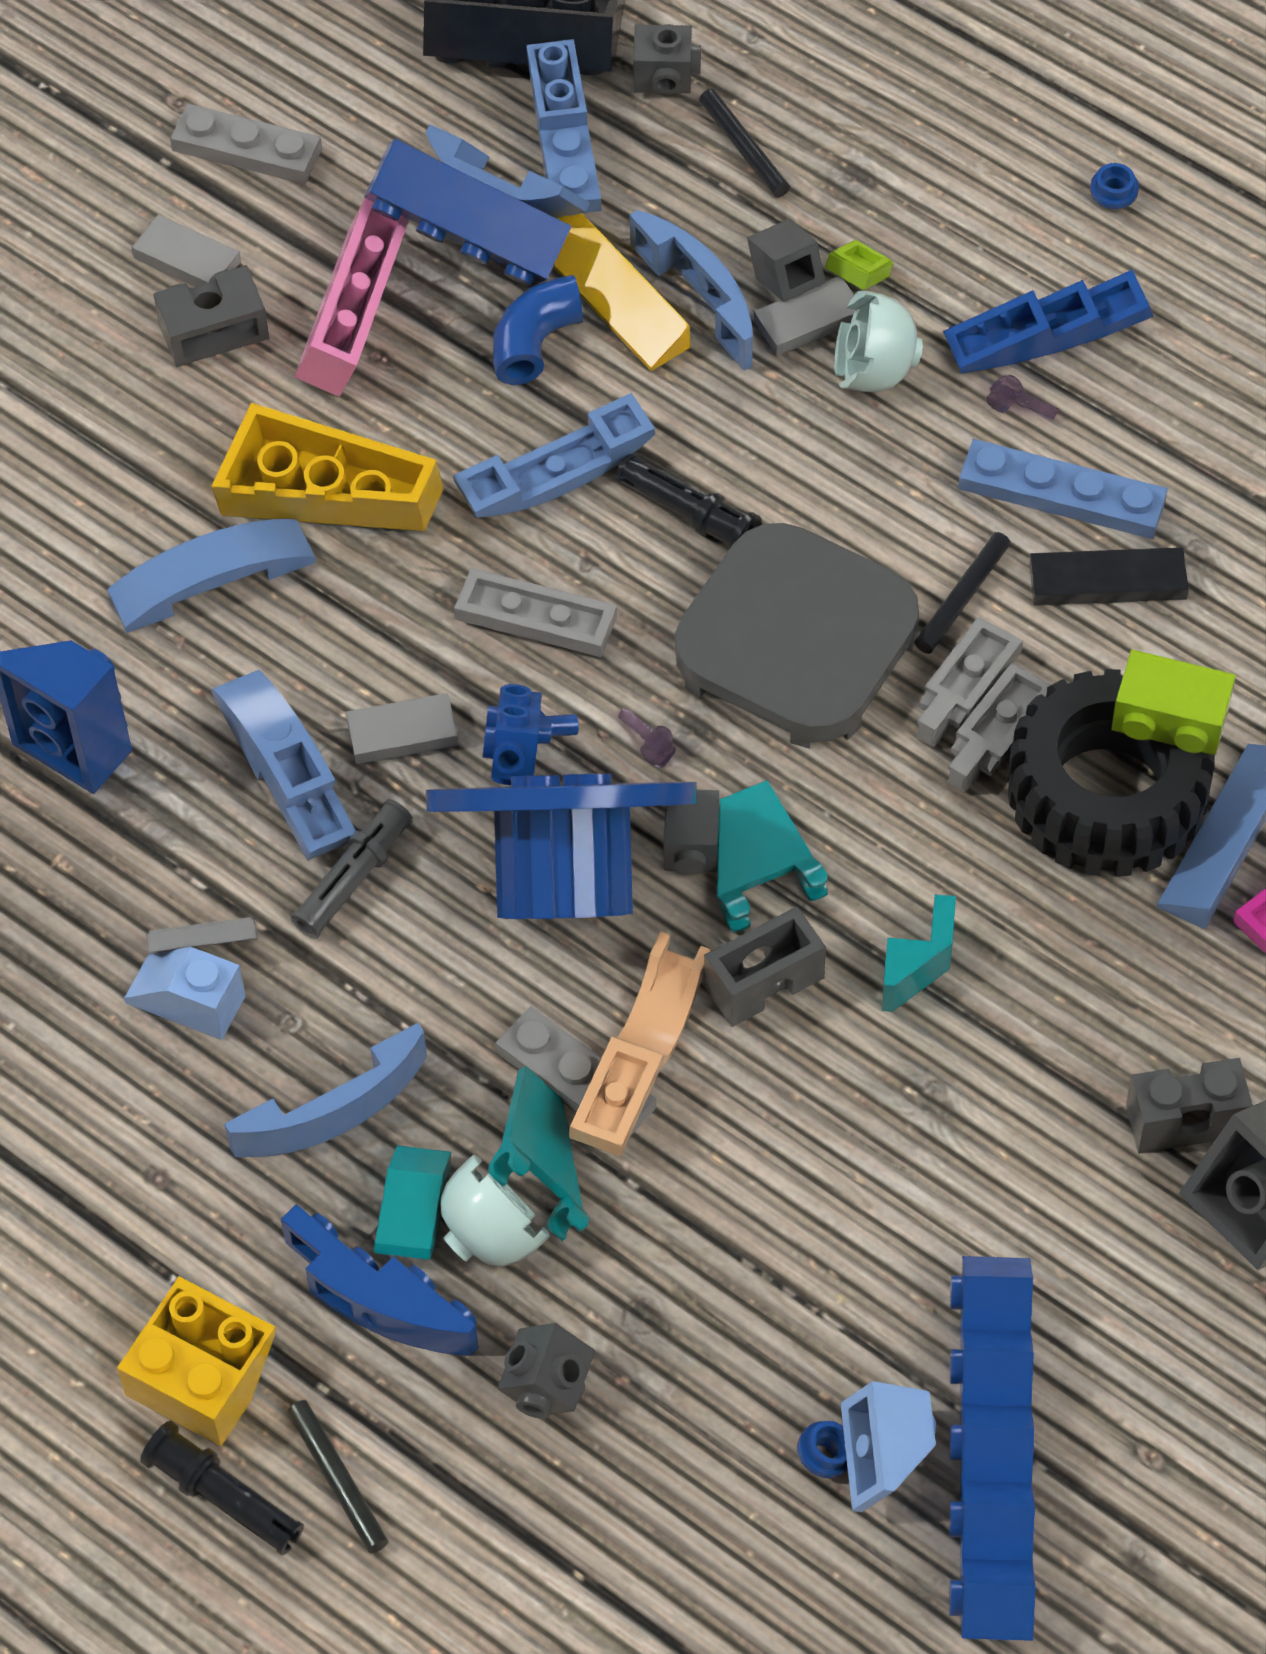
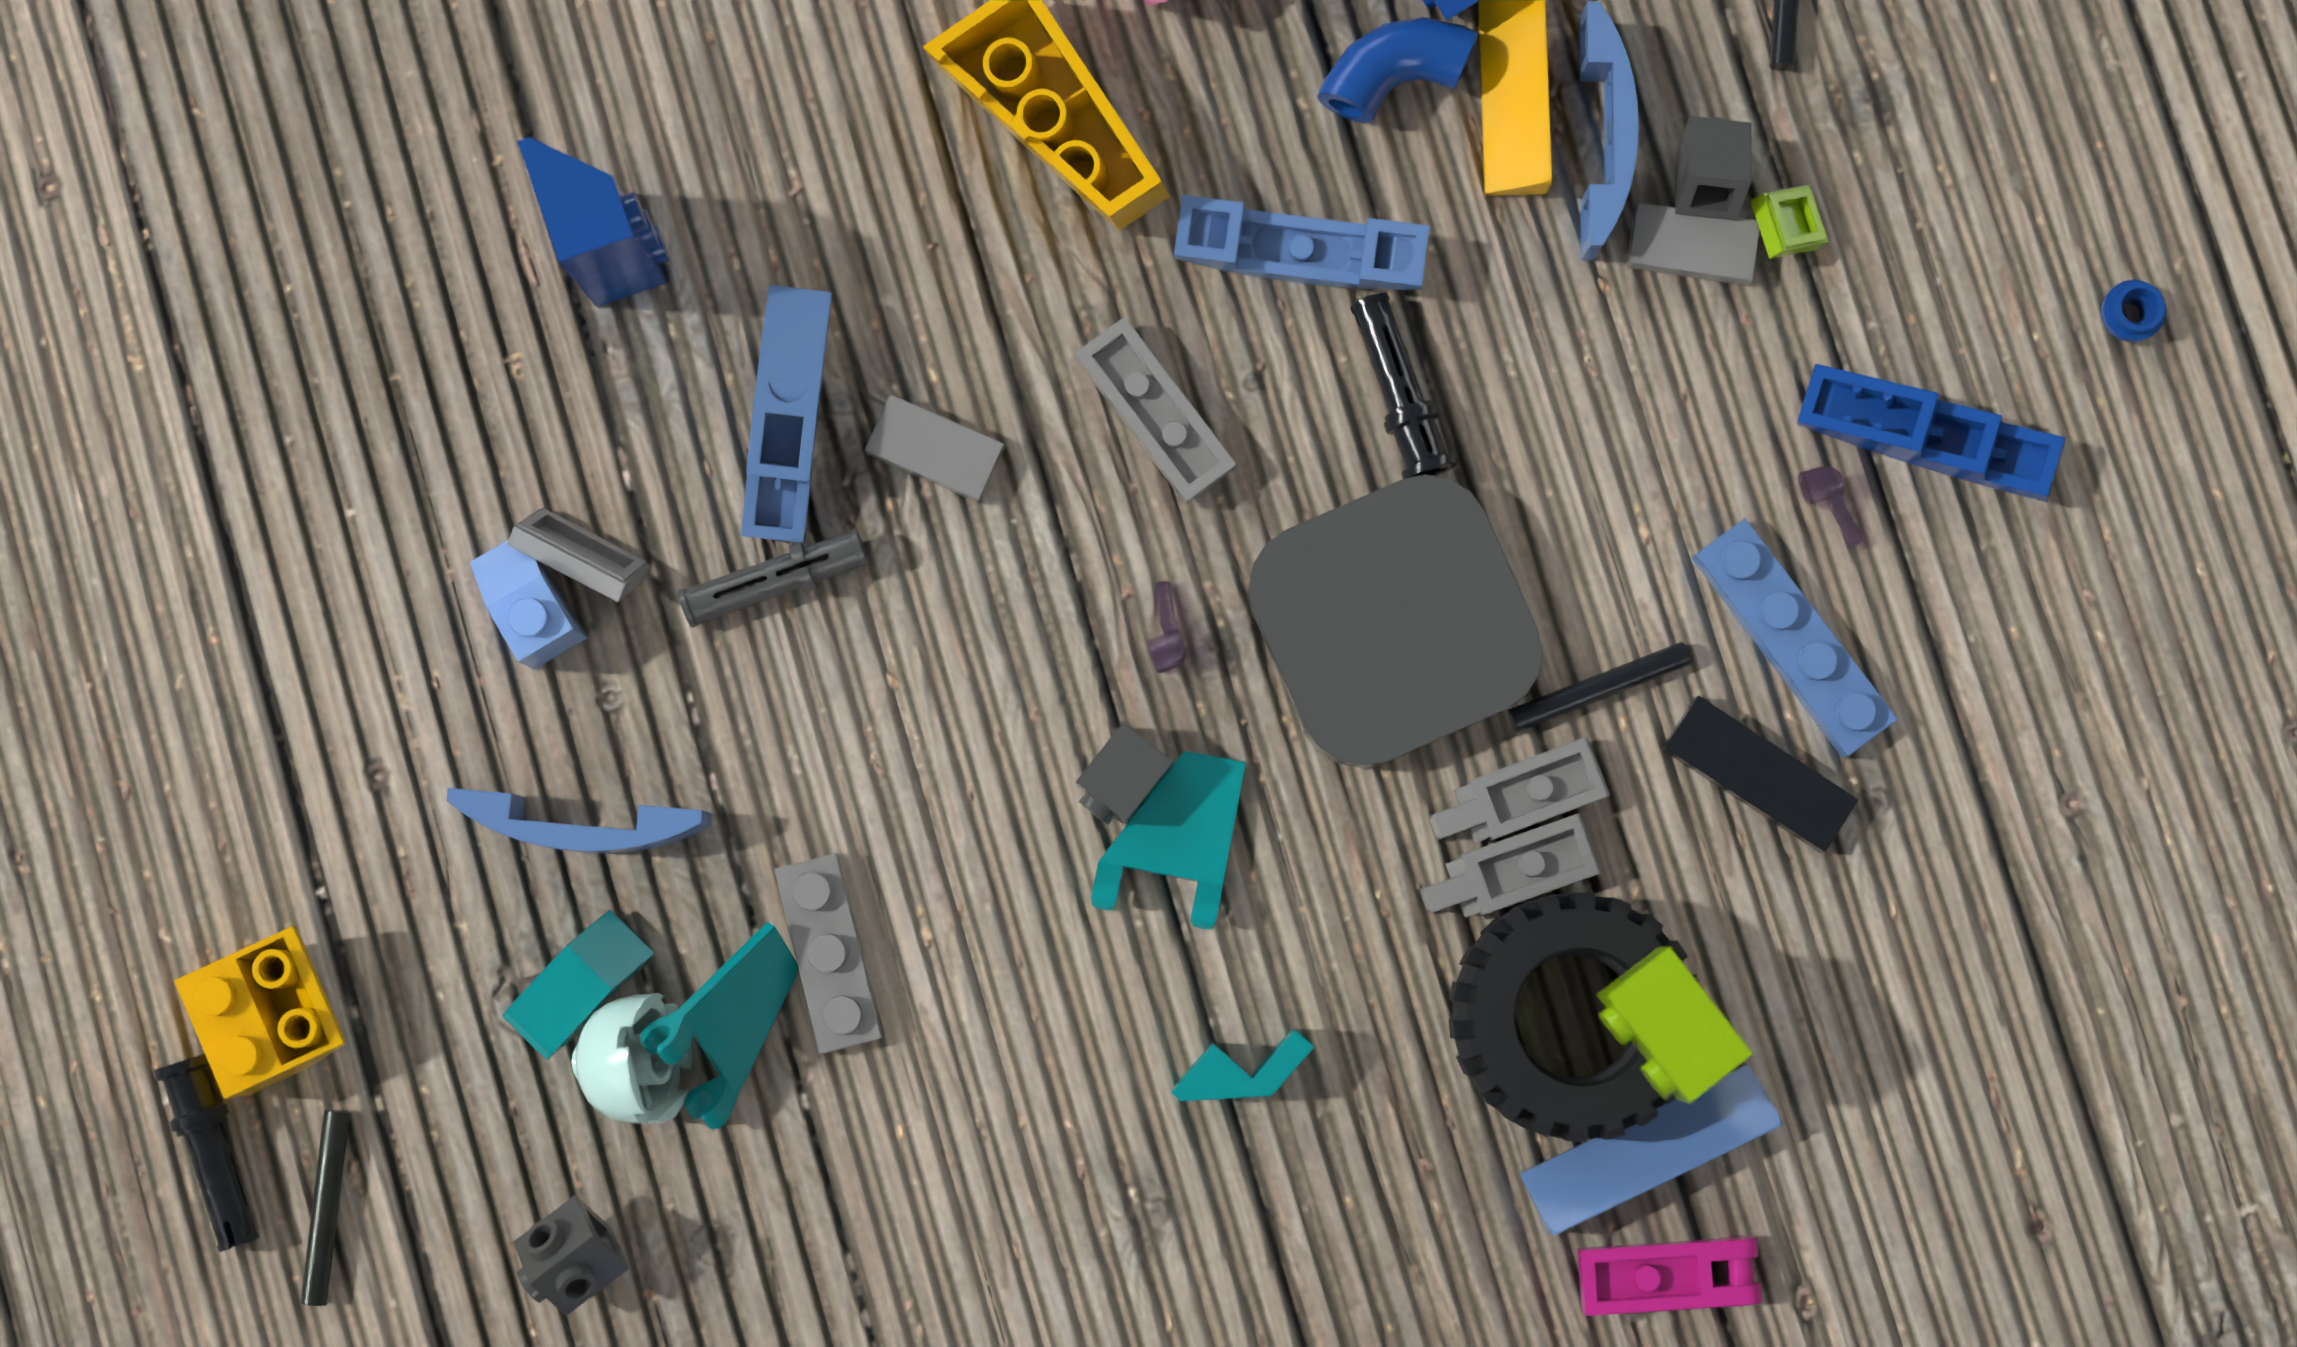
camera: 35 degrees right, 25 degrees up
(205, 564) = (878, 128): medium blue slope -> none
(387, 1301) = (484, 1078): blue slope -> none
(517, 728) = (1033, 544): blue brick -> none
(564, 844) = (971, 711): blue piece -> none
(640, 1049) = (895, 982): light nougat piece -> none
(792, 963) = (1055, 975): dark grey brick -> none
(877, 344) = (1727, 340): light aqua cylinder -> none

